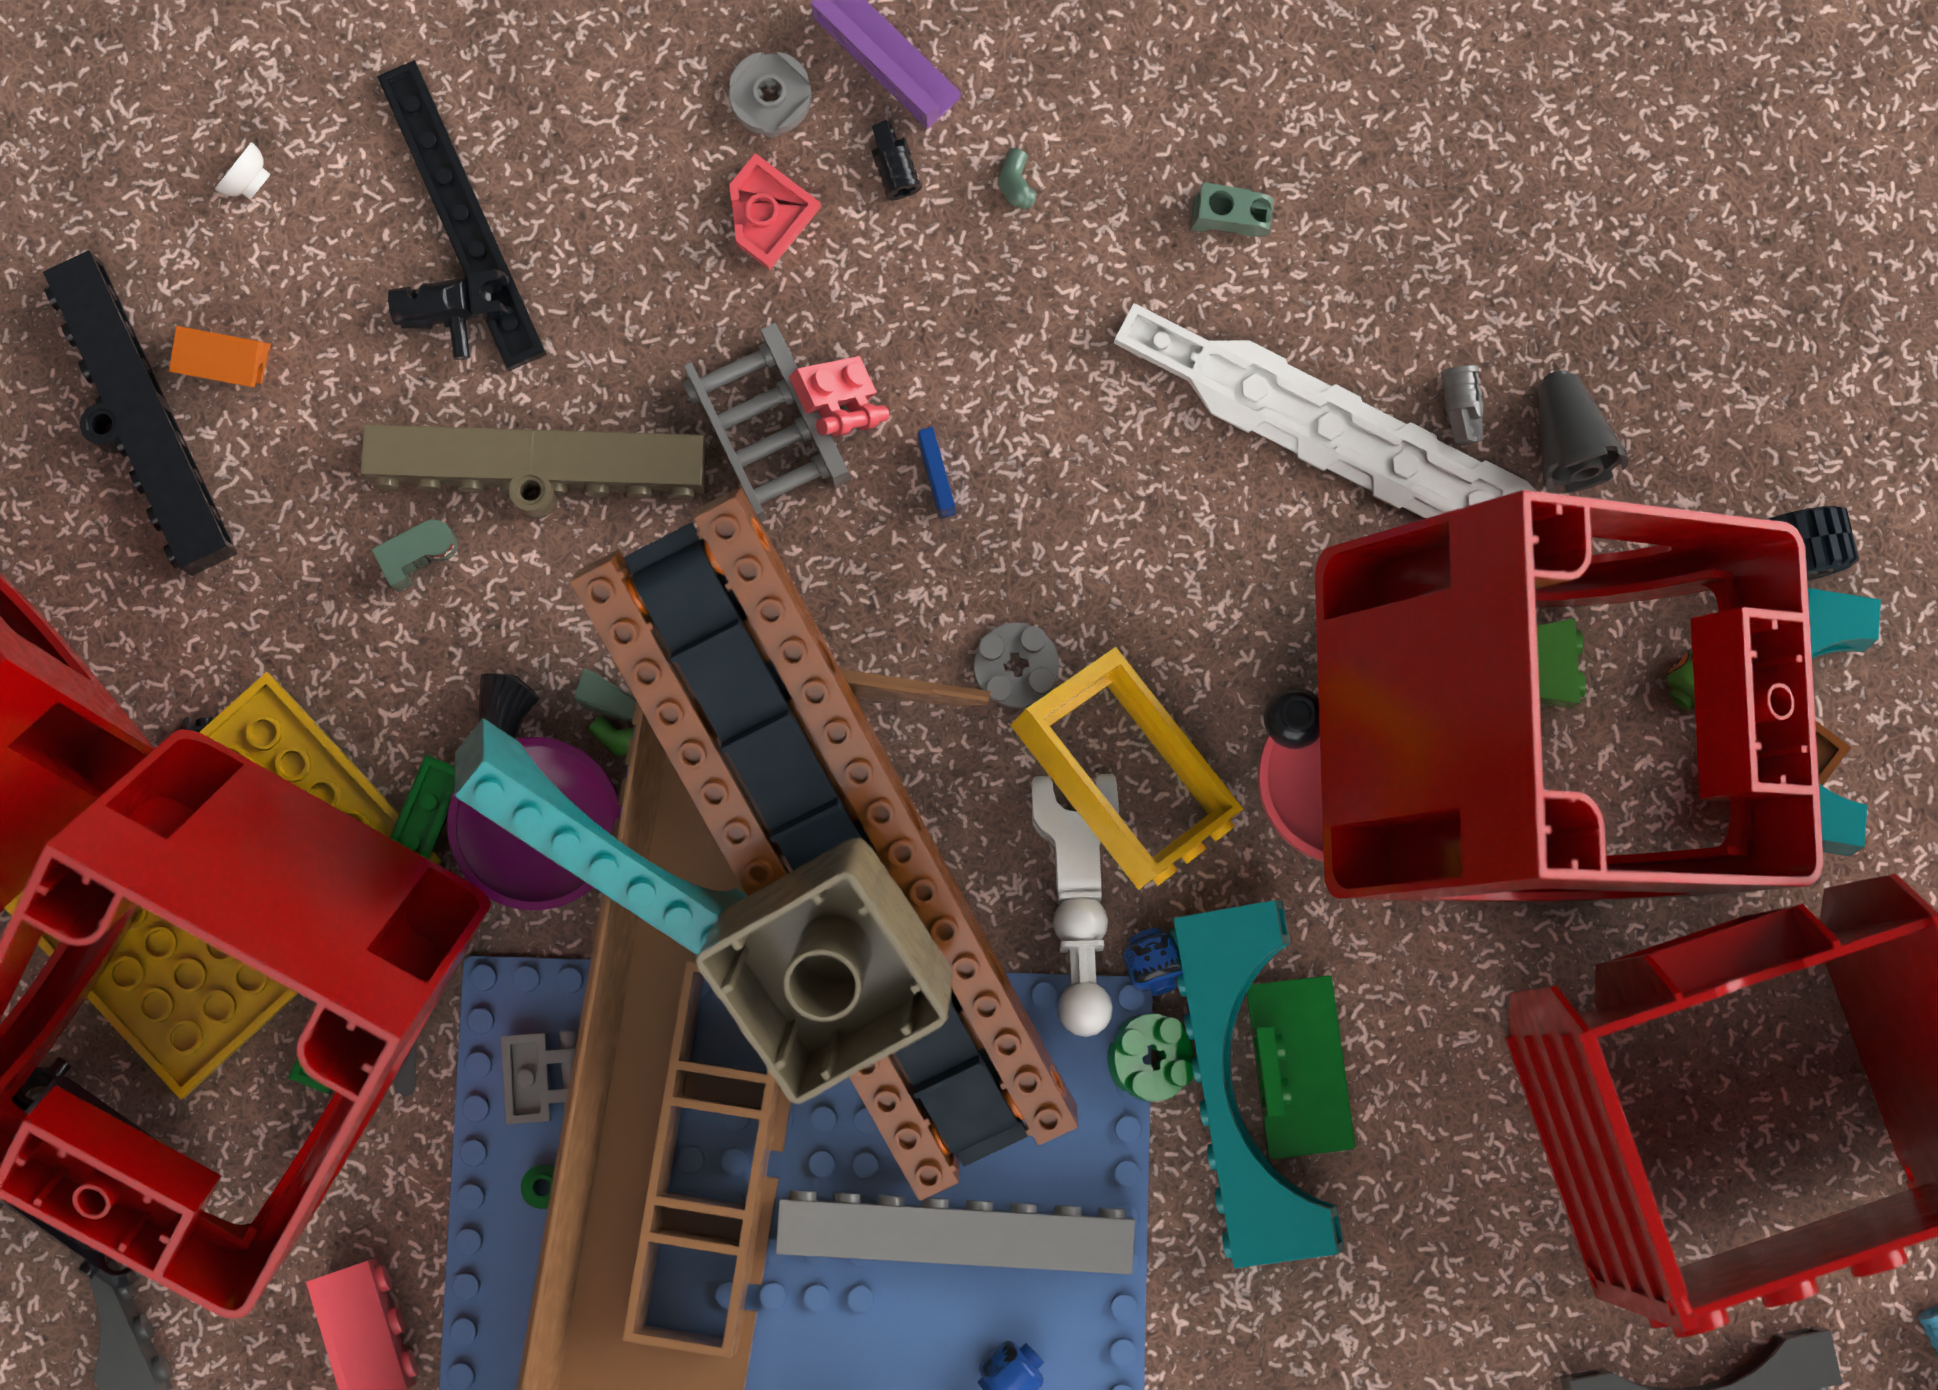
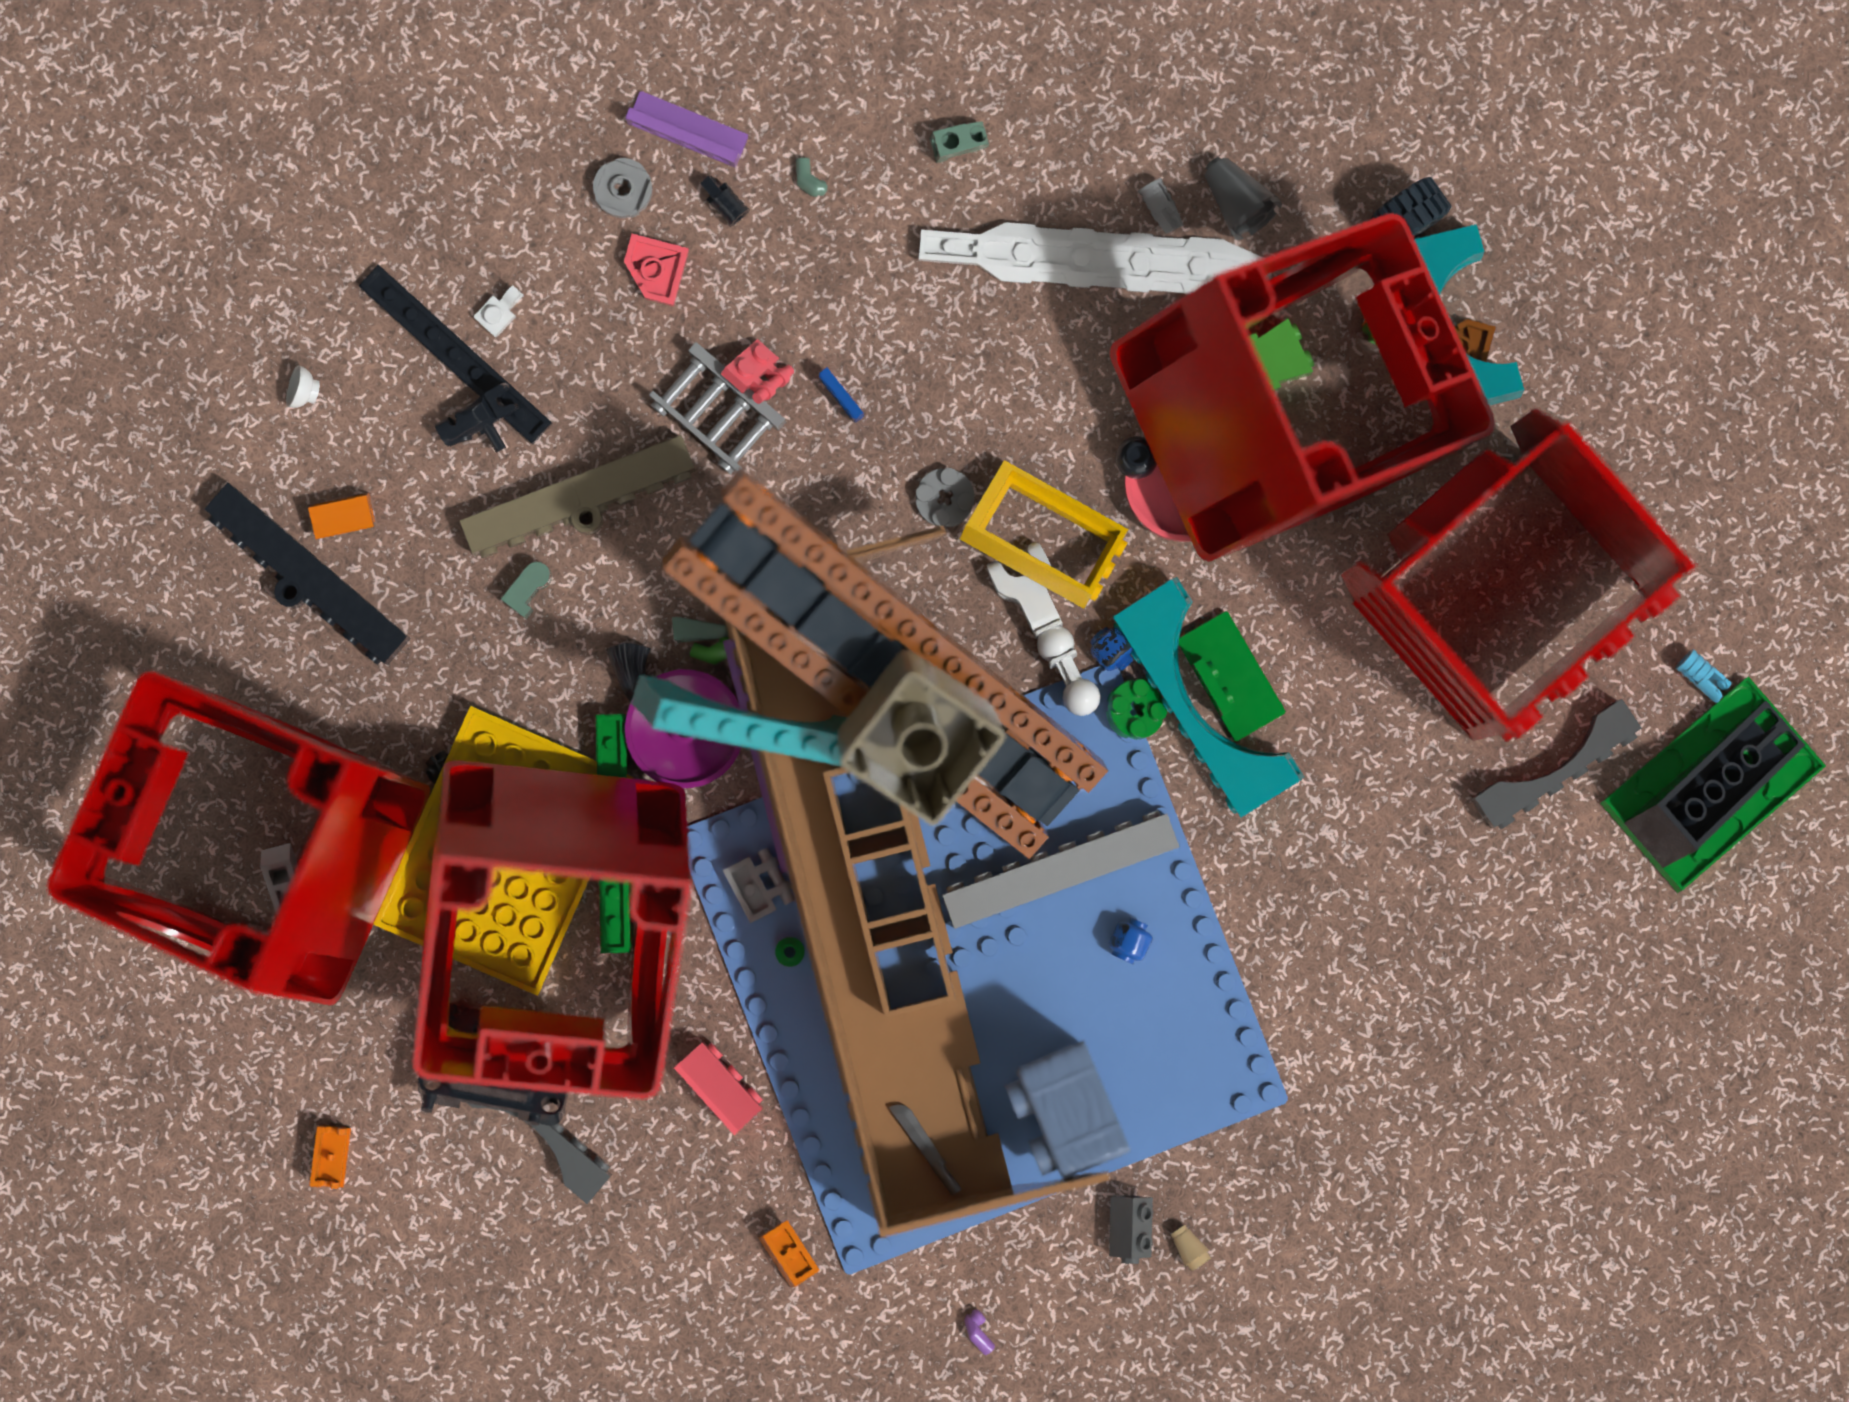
camera: 30 degrees left, 5 degrees up
(538, 186) = (496, 314): none -> white plate

